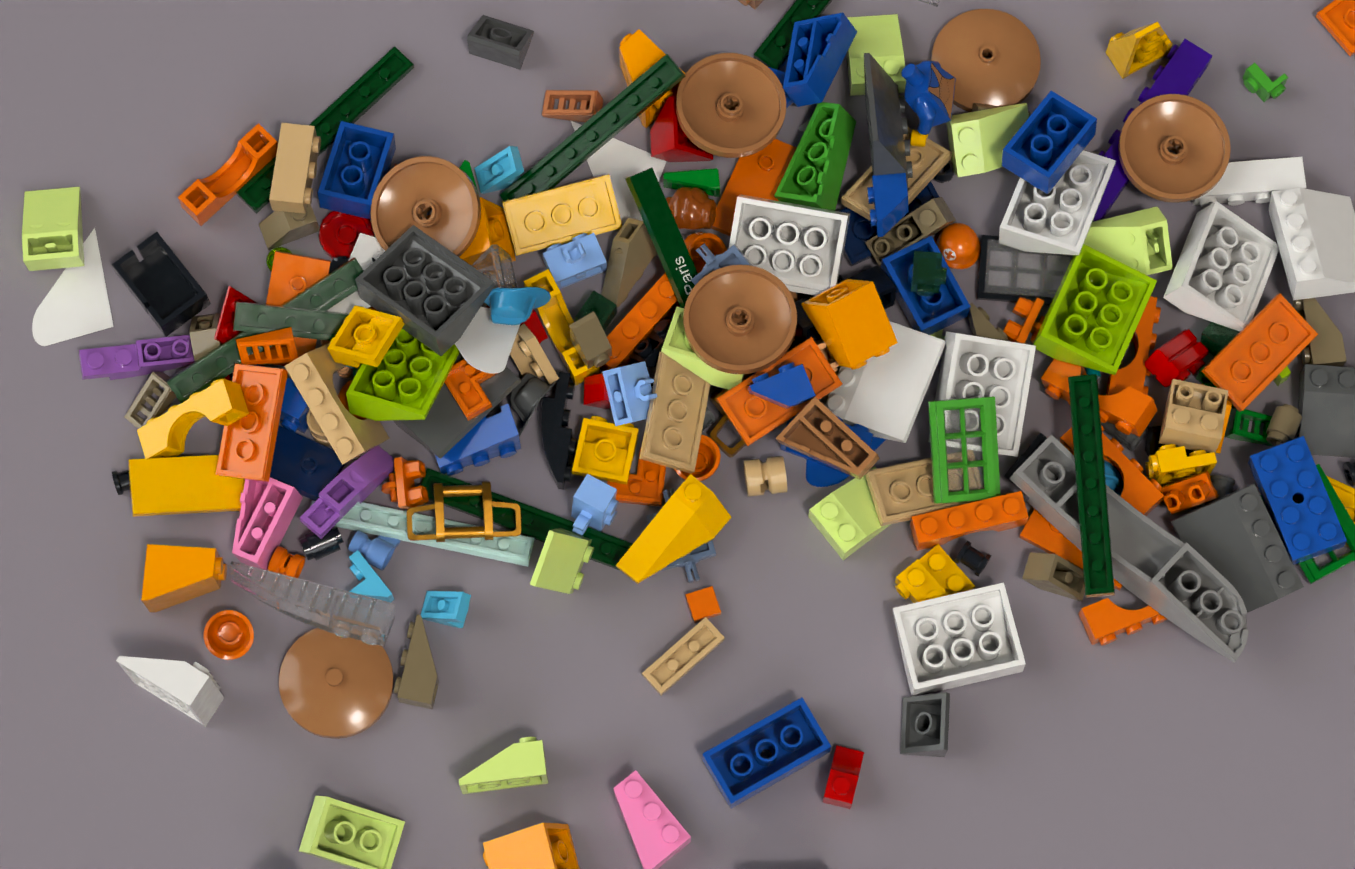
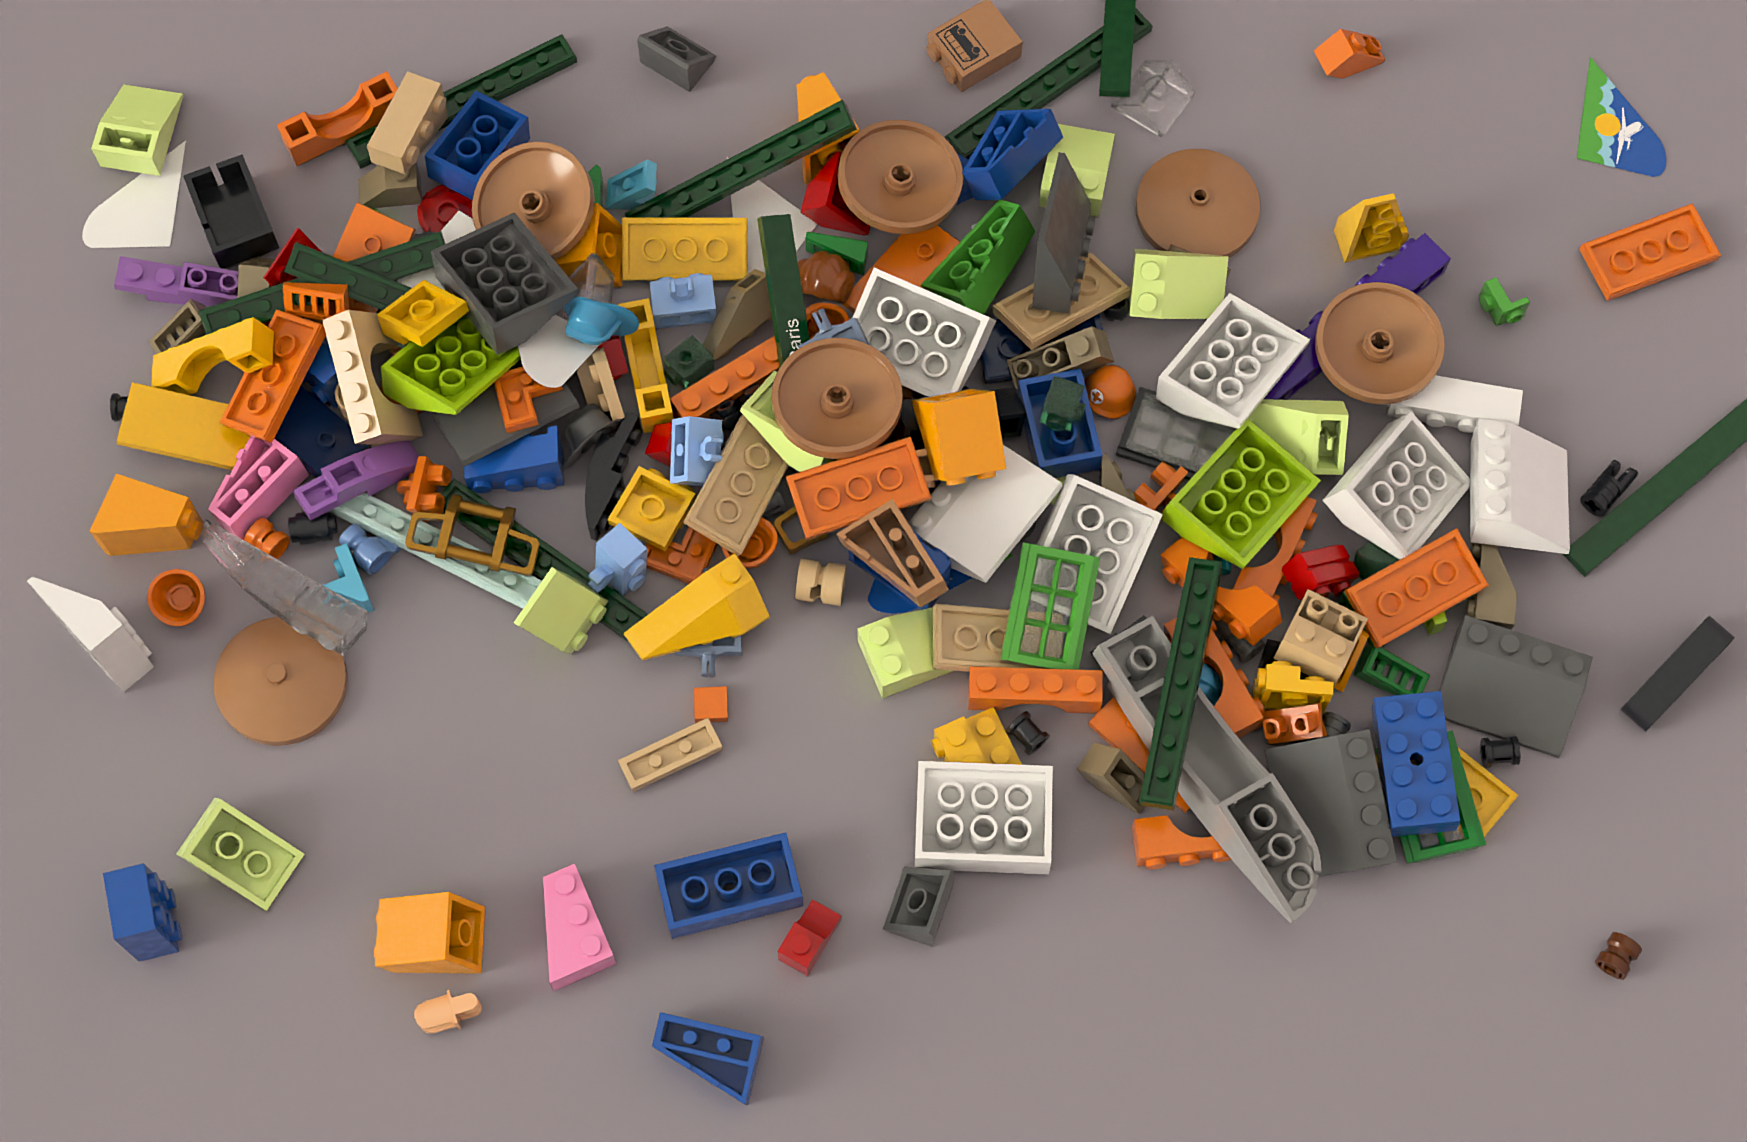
camera: 15 degrees right, 5 degrees down
(419, 679) = (373, 695): dark tan slope -> none
(446, 607) = (426, 633): medium azure slope -> none
(514, 767) = (436, 824): yellowish green slope -> none
(574, 96) = (748, 135): nougat slope -> none
(590, 341) = (667, 380): dark tan slope -> none
(784, 389) = (862, 483): blue slope -> none
(889, 200) = (1043, 318): blue slope -> none
(930, 96) = (1122, 219): blue torso -> none
(1049, 142) = (1239, 298): blue brick -> none
(1283, 425) = (1423, 675): dark tan brick -> none

